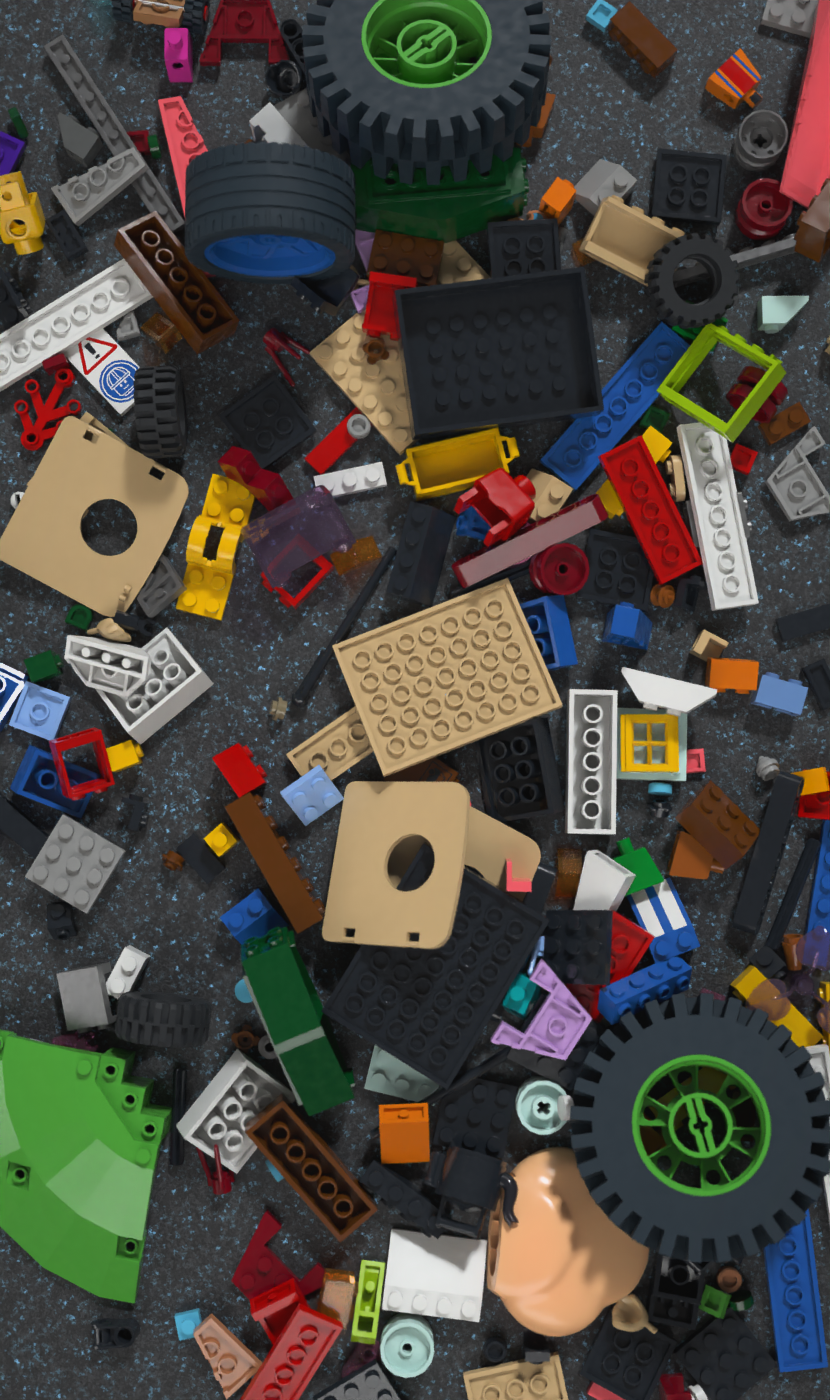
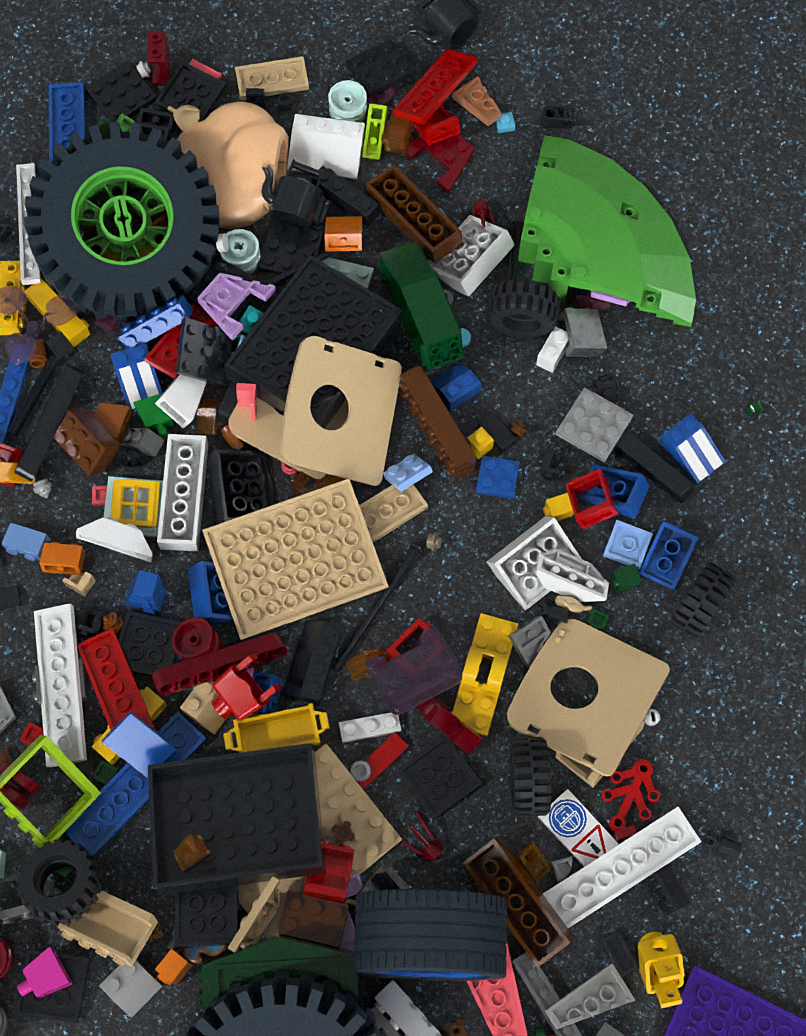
camera: 175 degrees left, 15 degrees down
(200, 797) = (497, 477): none -> blue plate
(240, 769) = (464, 492): red slope -> none
(244, 1046) = (463, 299): reddish brown plate -> none
(470, 242) = (259, 918): none -> tan wing
(532, 833) = (234, 442): none -> dark orange cone
(544, 312) = (190, 851): none -> clear orange slope
(616, 438) = (138, 743): none -> tile
(648, 831) = (142, 441): none -> dark grey slope
(660, 789) = (127, 472): medium azure tile -> none
(675, 469) = (92, 729): tan plate -> none
(697, 190) = (44, 975): none -> dark pink torso

